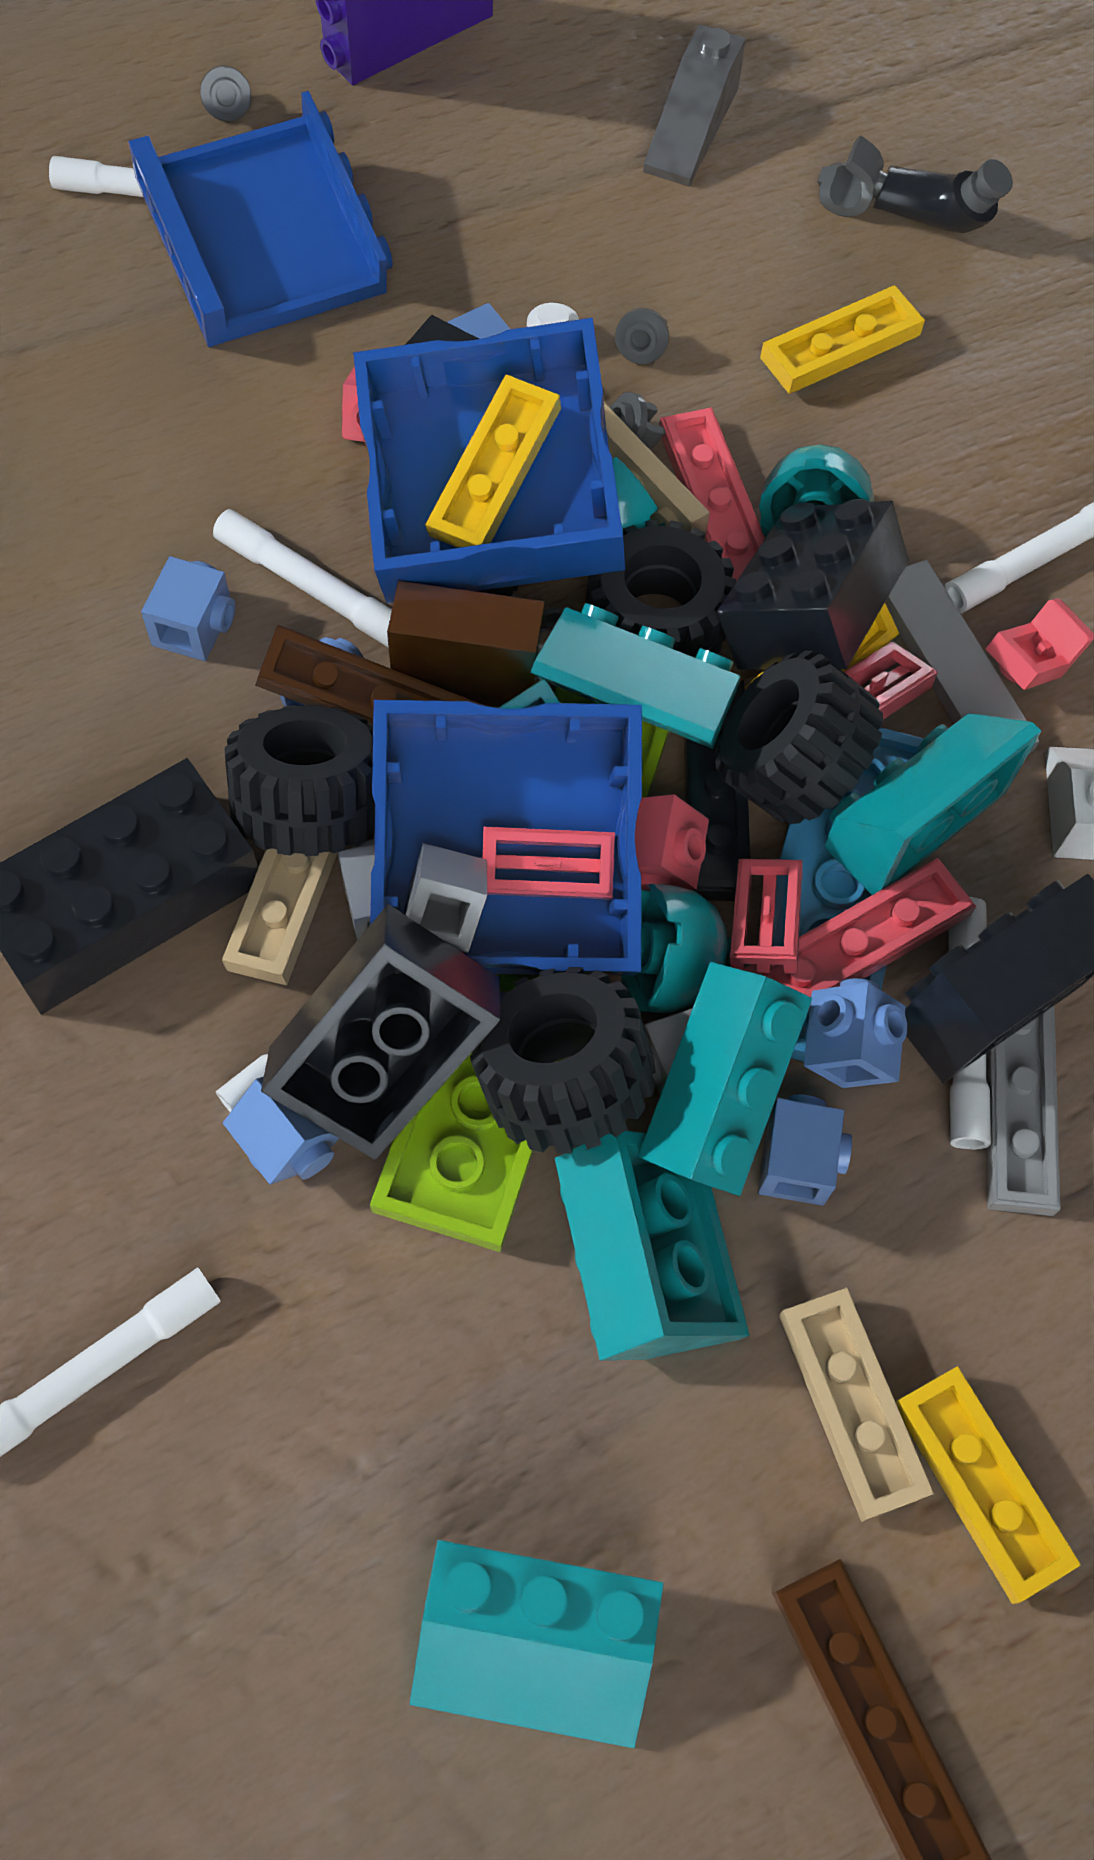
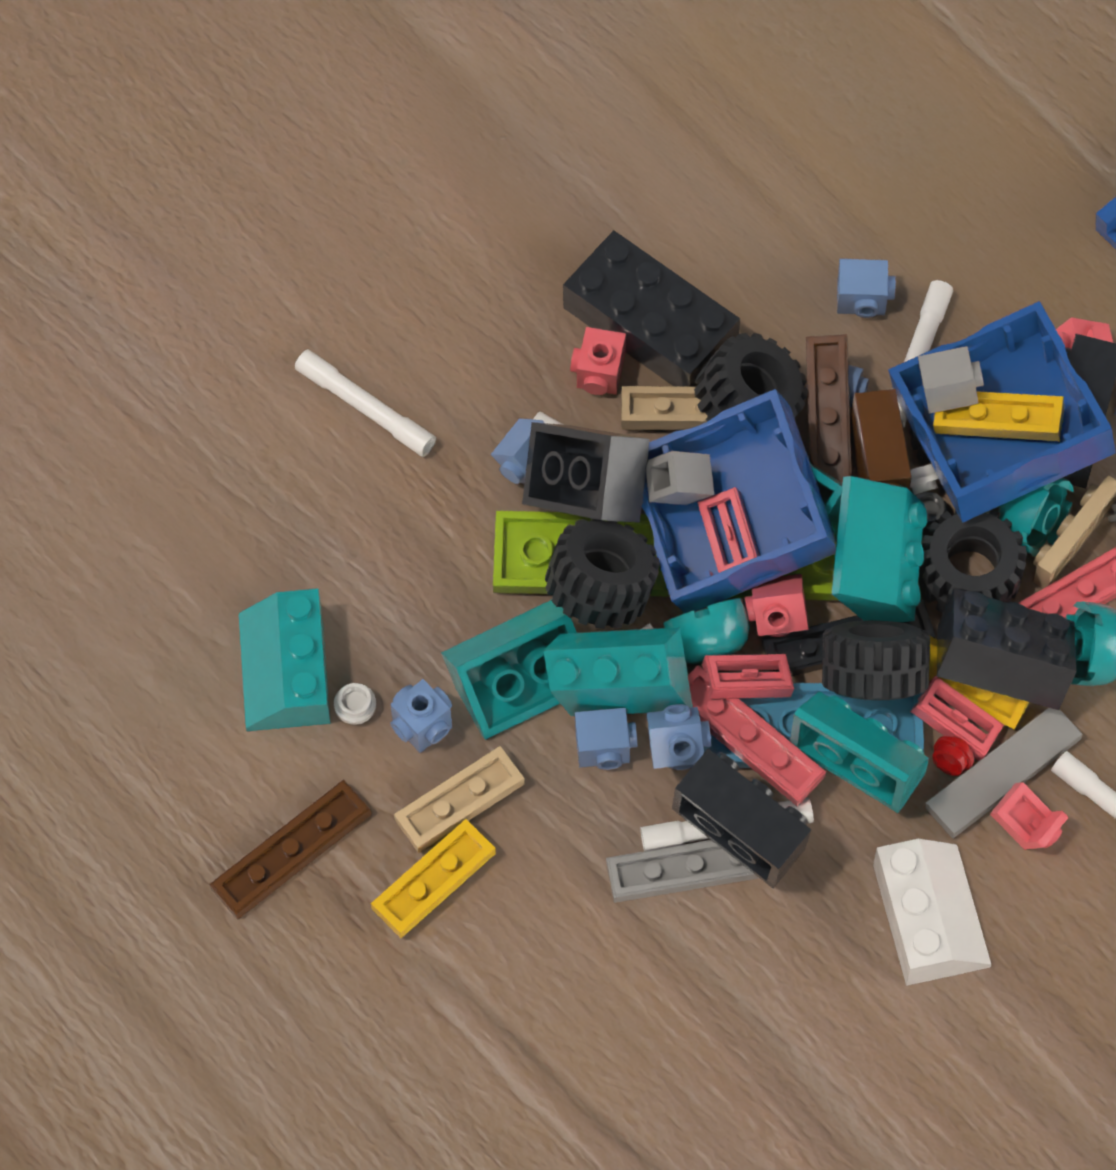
camera: 80 degrees right, 0 degrees up
(165, 980) = (599, 361): none -> coral brick
(429, 493) = (950, 379): none -> light grey brick
(639, 1535) = (355, 703): none -> white plate
(690, 1447) = (420, 725): none -> medium blue brick
(928, 706) = (952, 755): none -> red plate

